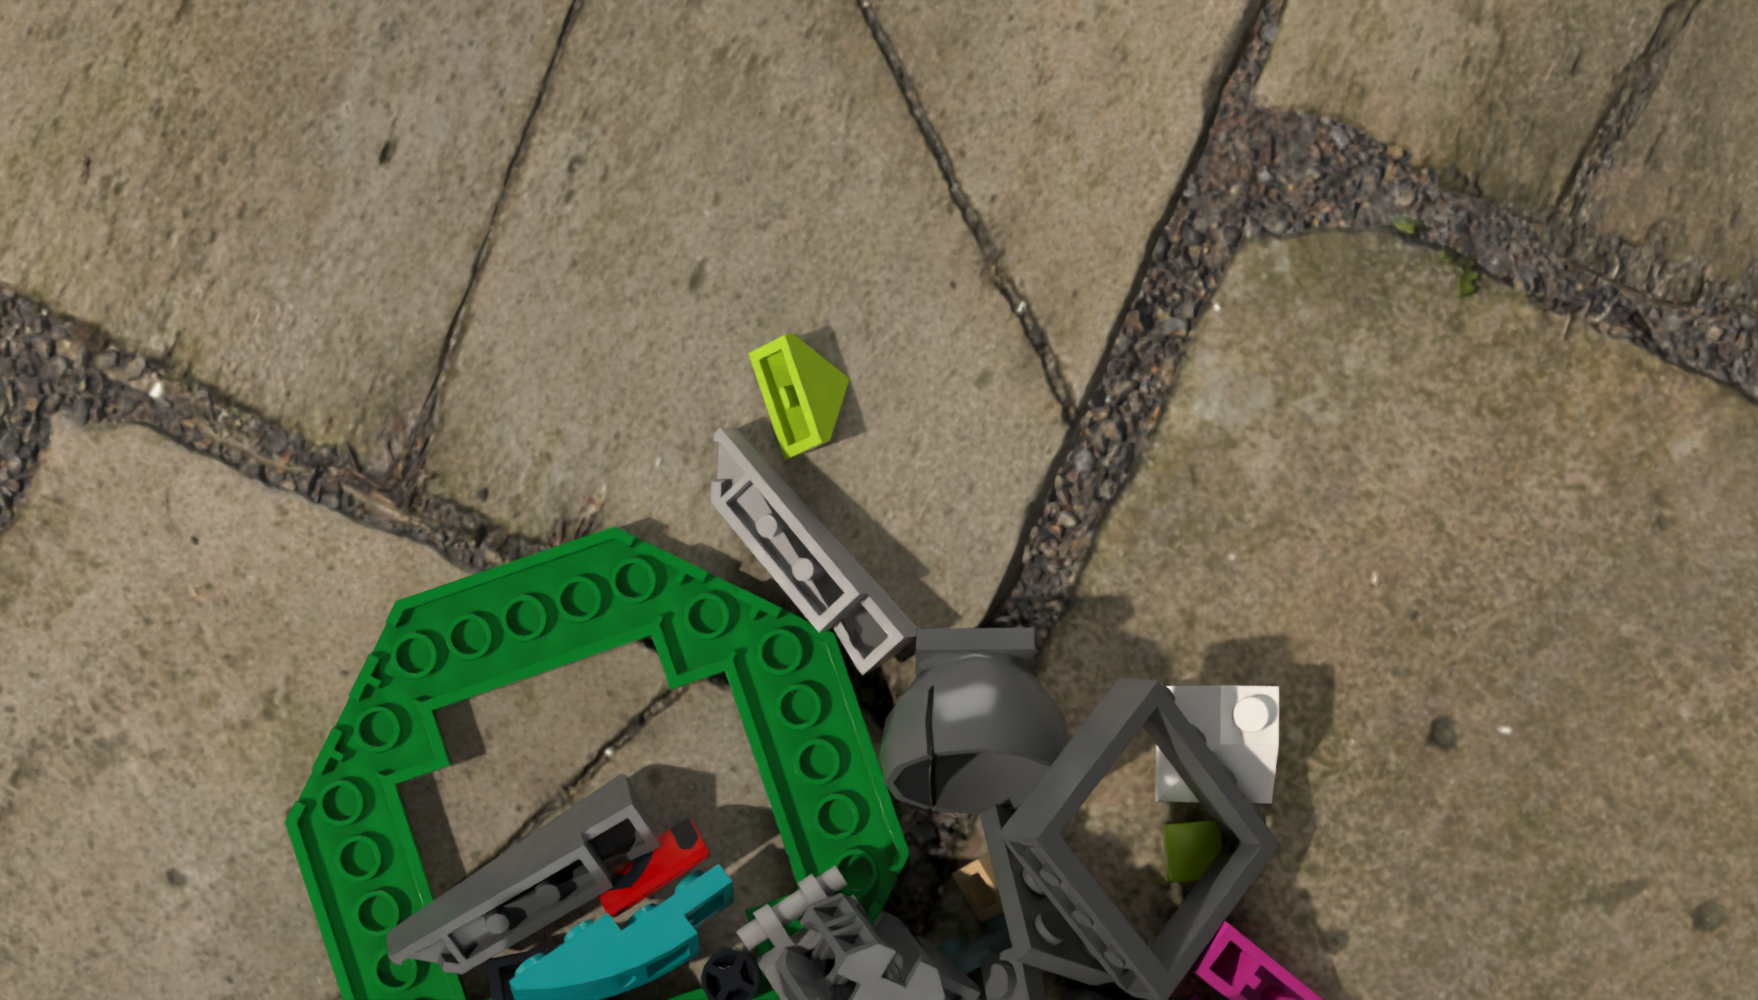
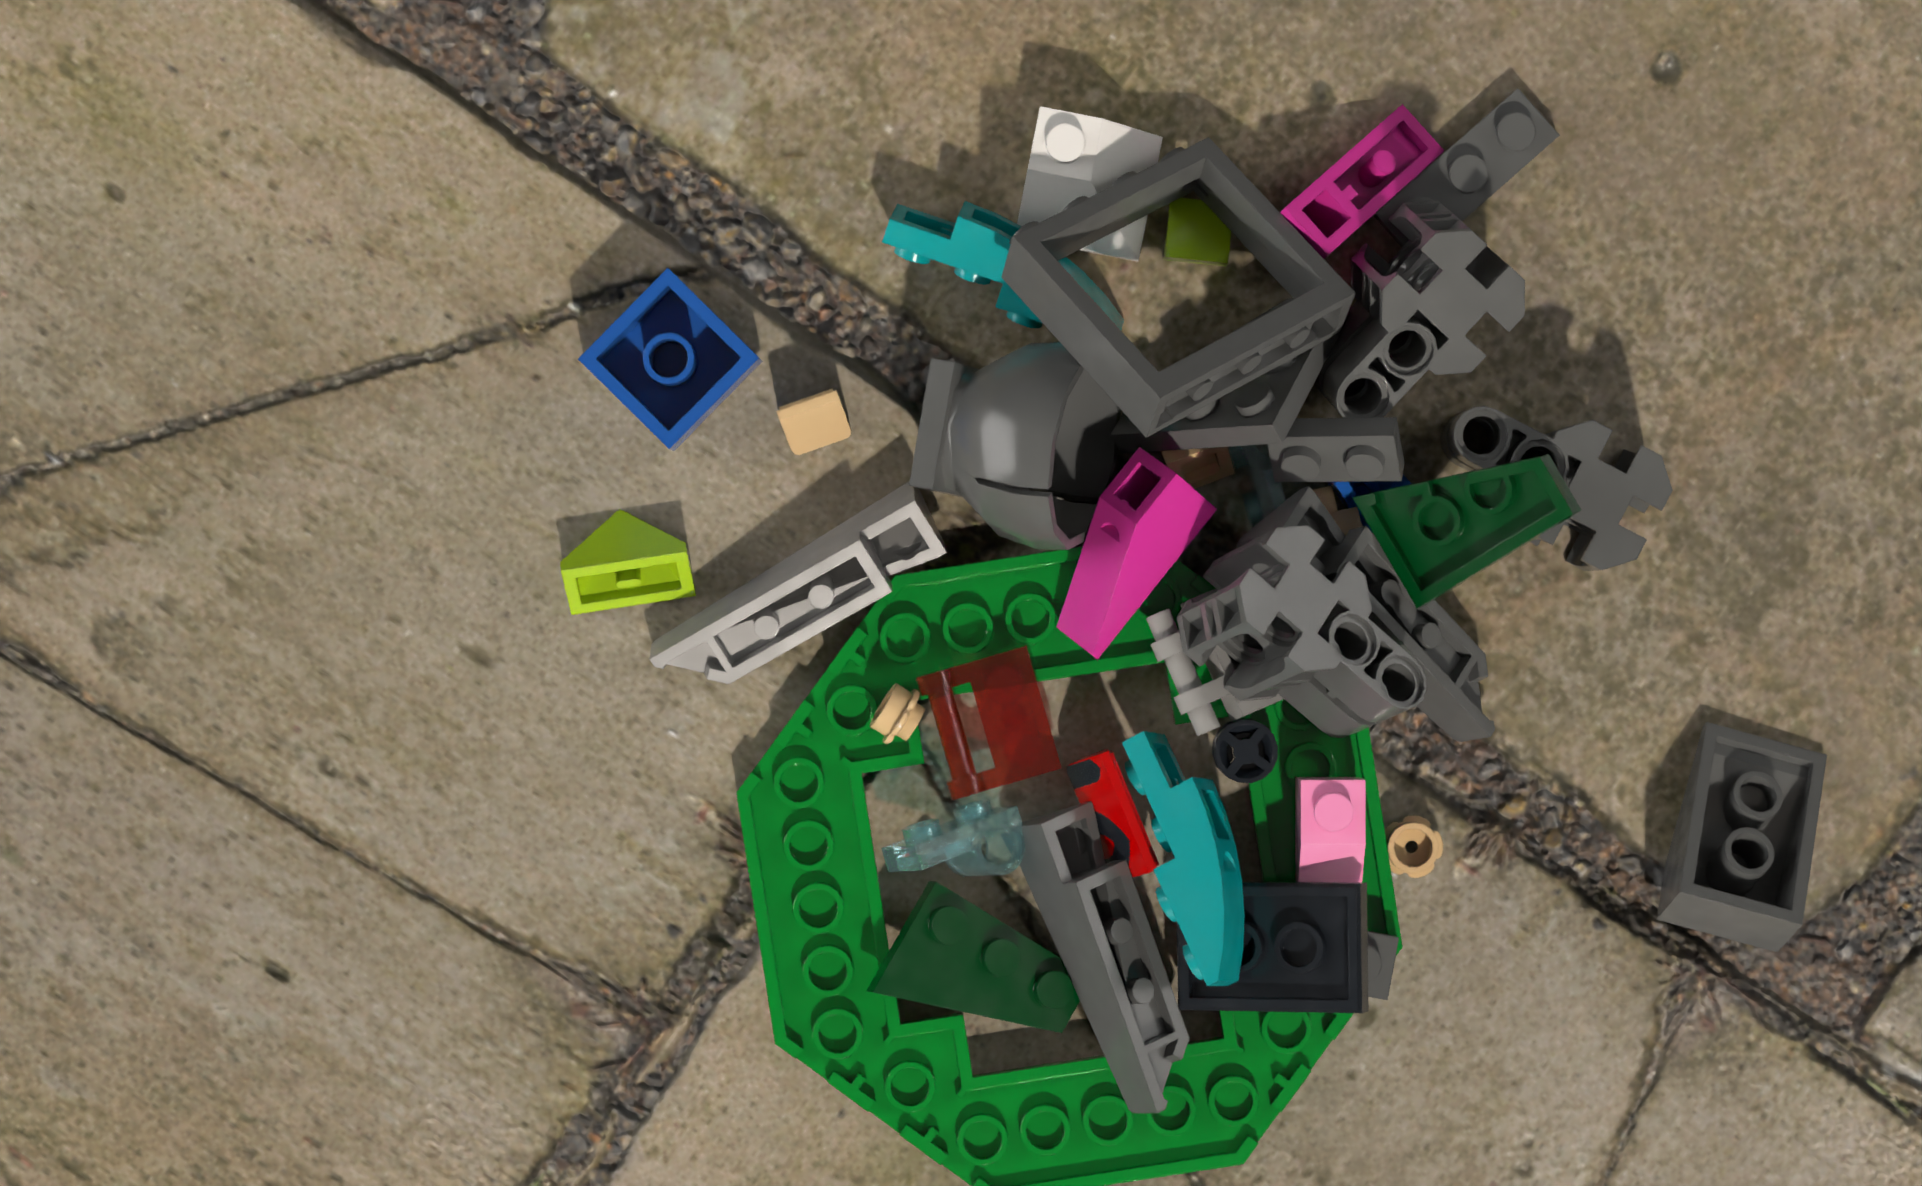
camera: 80 degrees left, 5 degrees up
(496, 767) = (974, 965): none -> dark green wing
(602, 734) = (960, 842): none -> clear light blue plate
(709, 657) = (898, 714): none -> tan plate
(724, 759) = (1010, 717): none -> clear red plate
(895, 838) = (1131, 544): none -> dark pink slope
(958, 536) = (814, 422): none -> tan slope
(989, 397) = (670, 360): none -> blue brick
(1138, 653) = (978, 251): none -> teal slope

